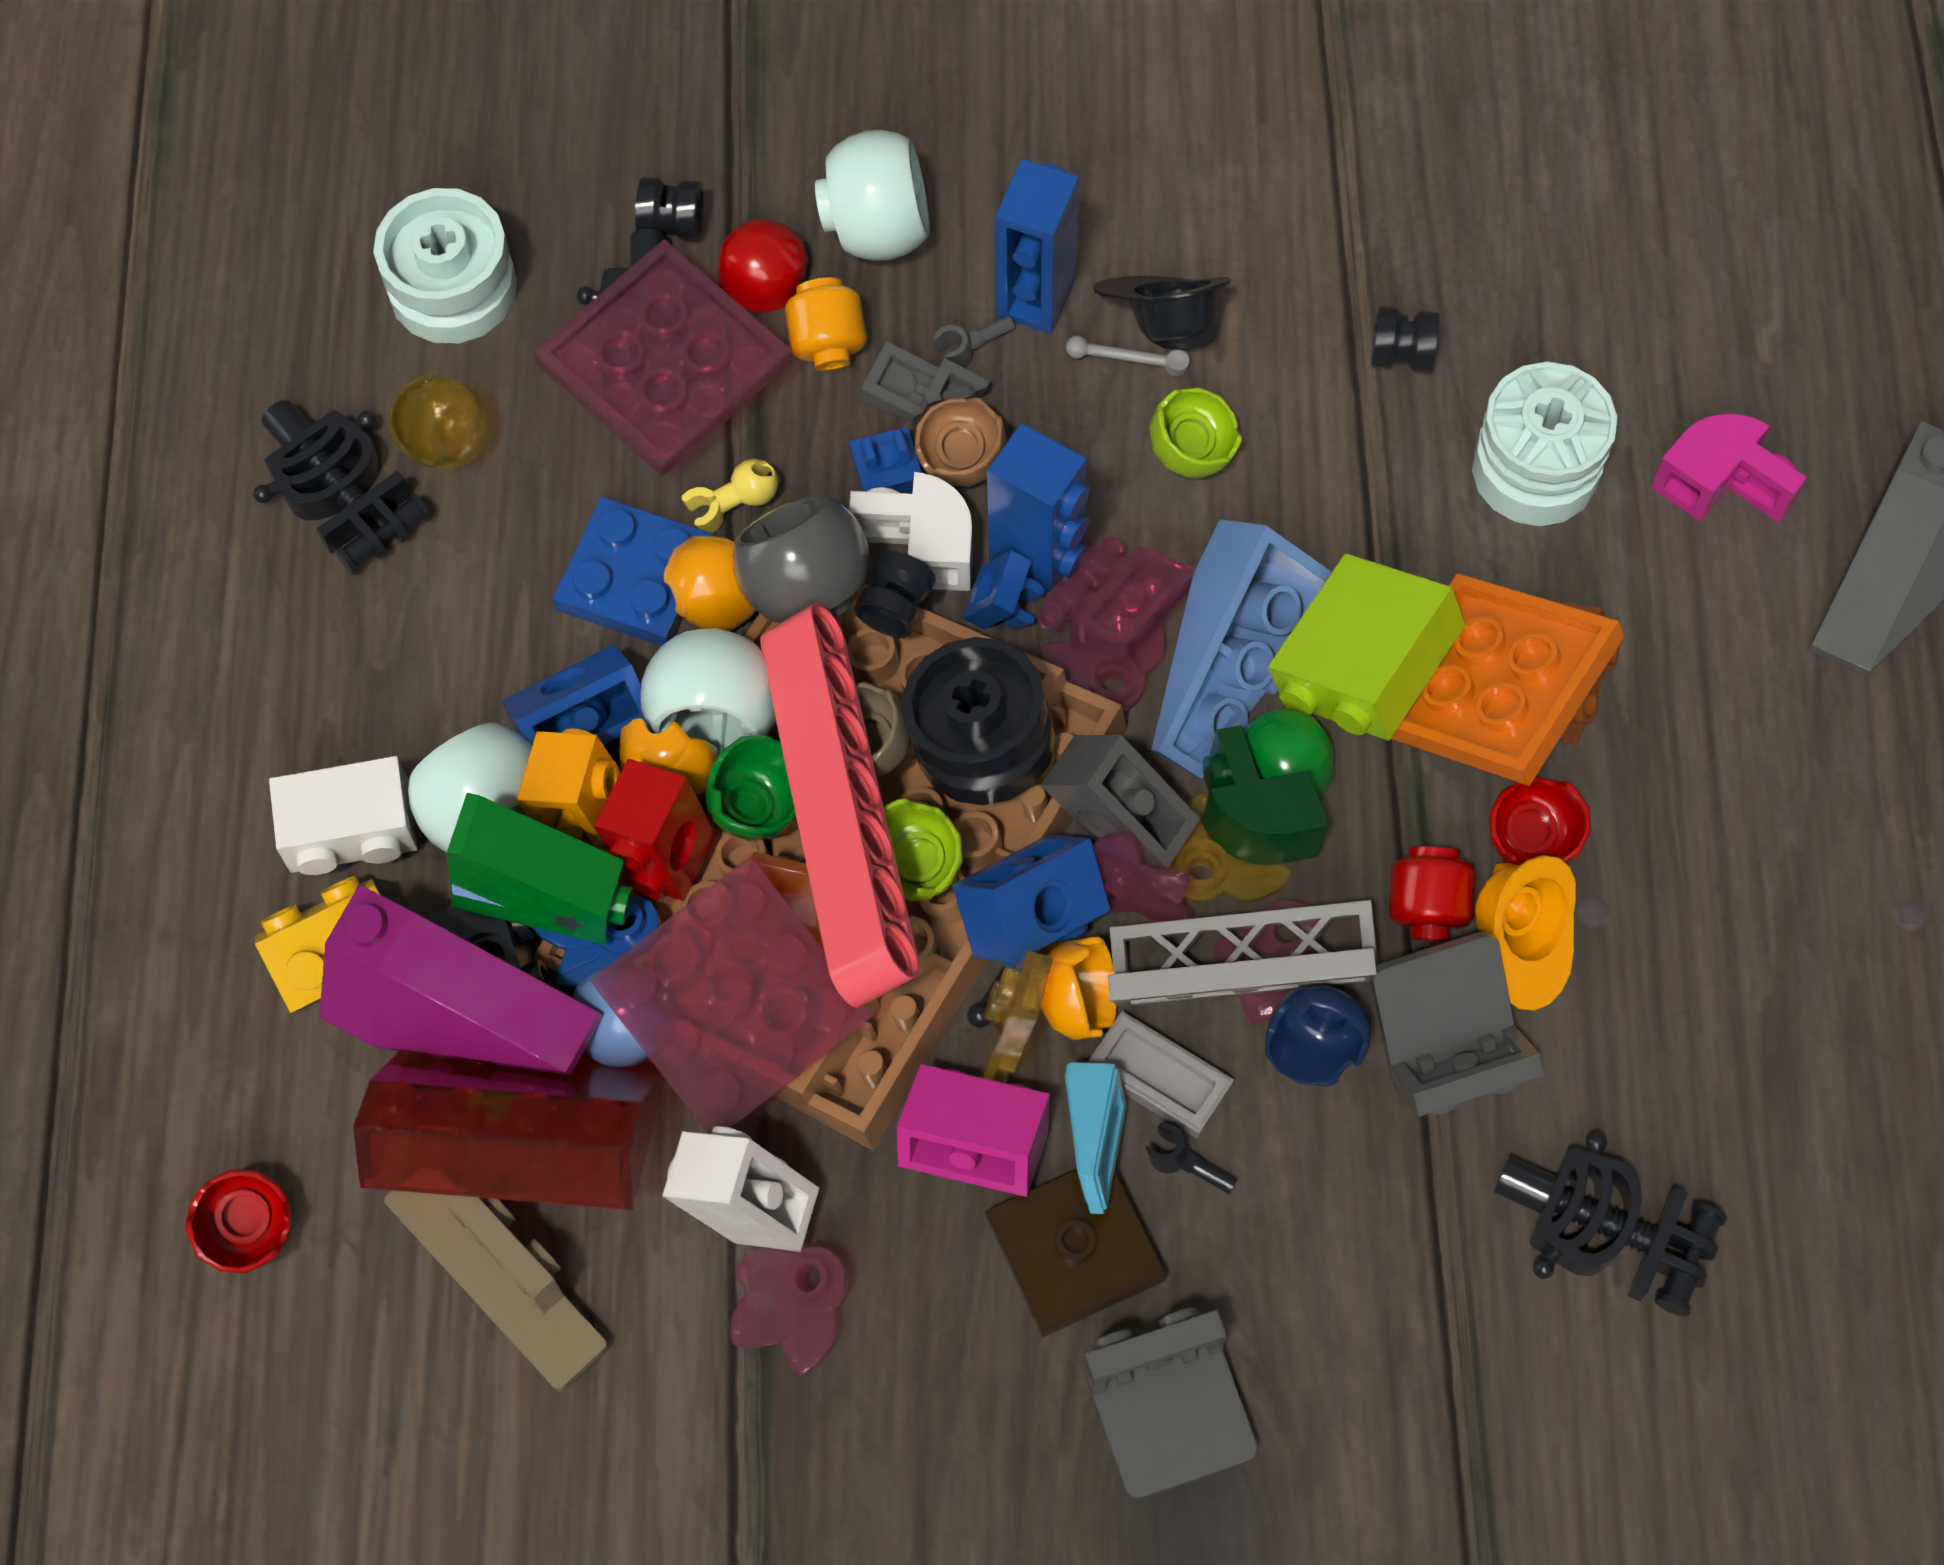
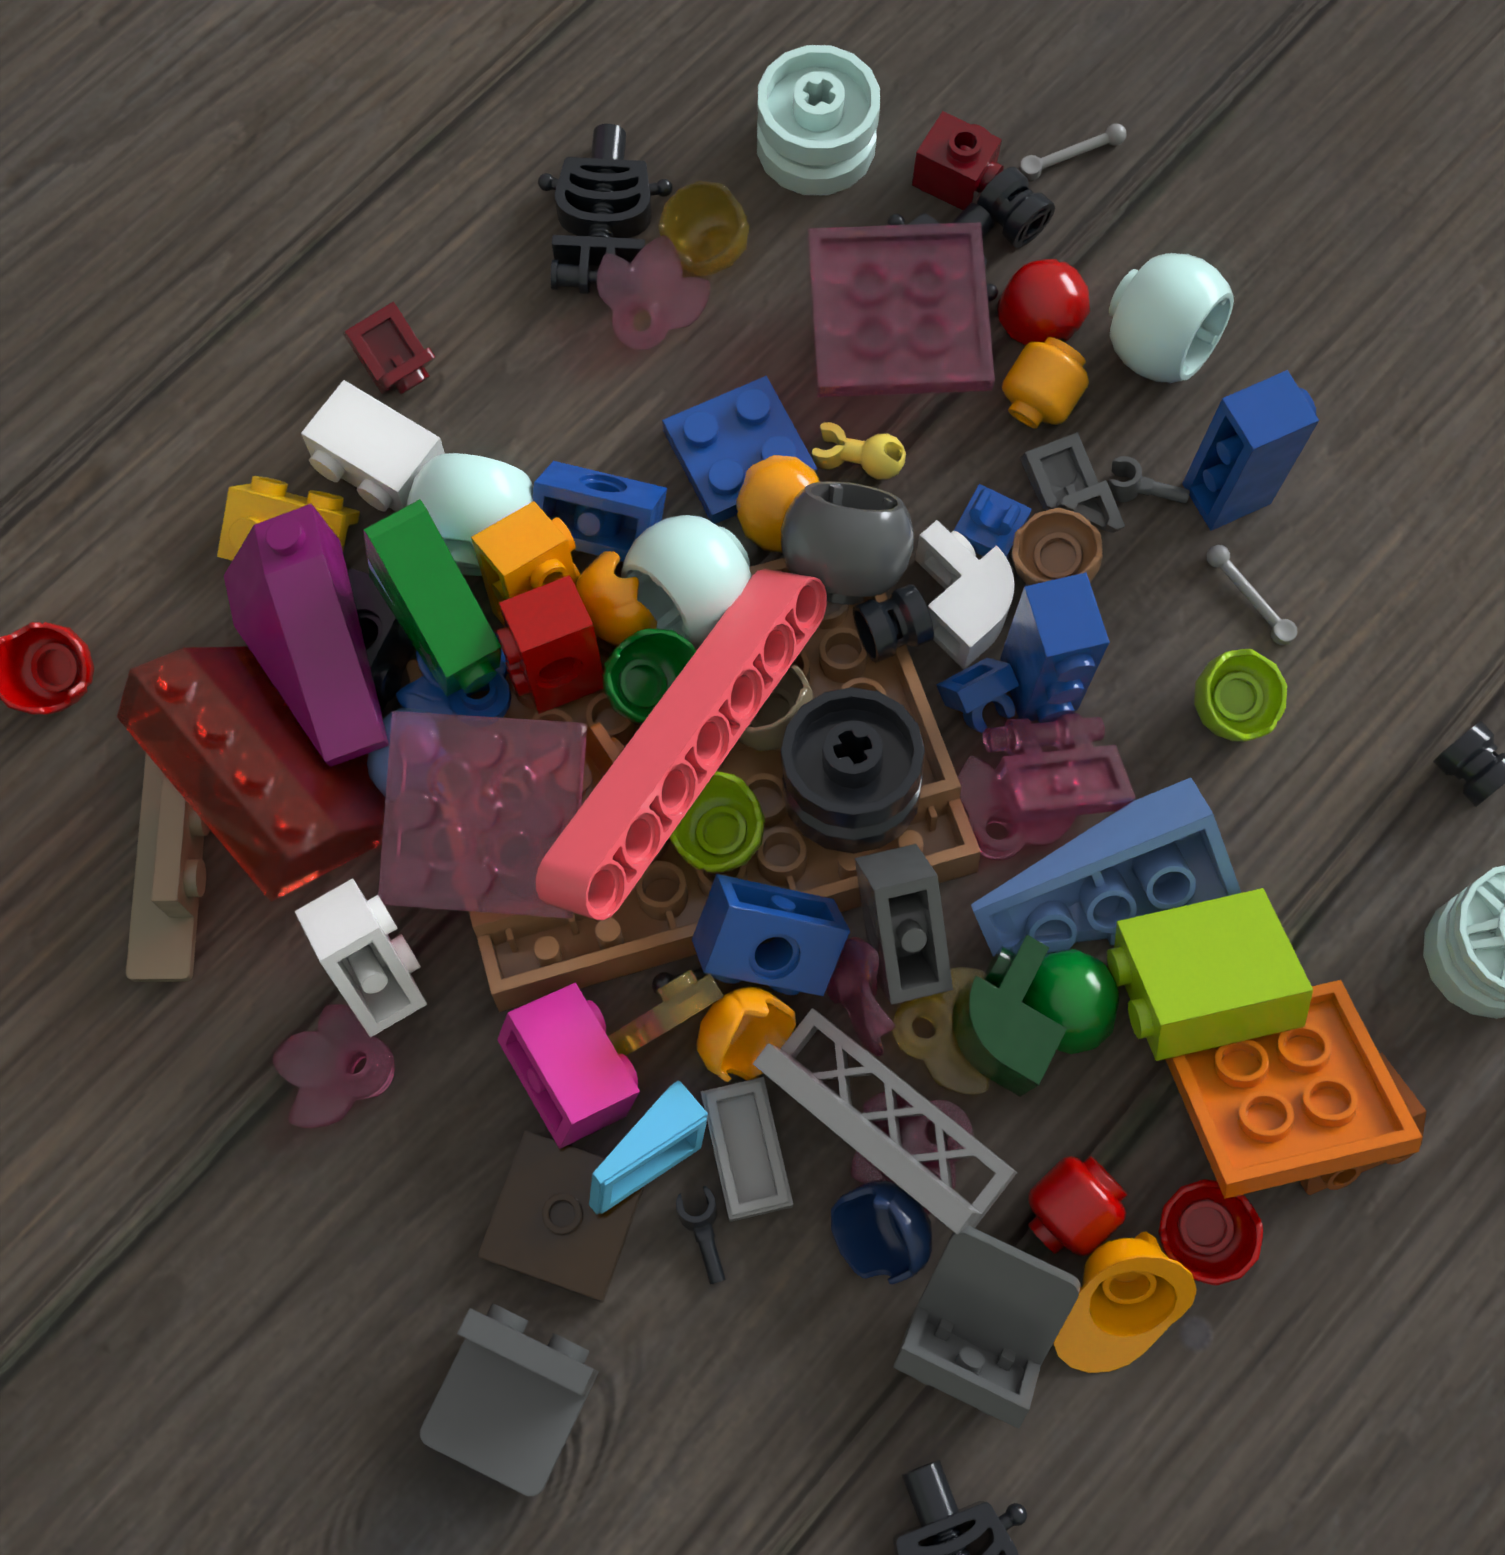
camera: 40 degrees right, 5 degrees up
(272, 731) = (390, 350): none -> dark red bracket
(443, 500) = (653, 285): none -> clear pink plate
(590, 210) = (956, 161): none -> dark red brick
(647, 166) = (1032, 165): none -> light grey hinge
(1170, 309) = (1314, 583): black piece -> none

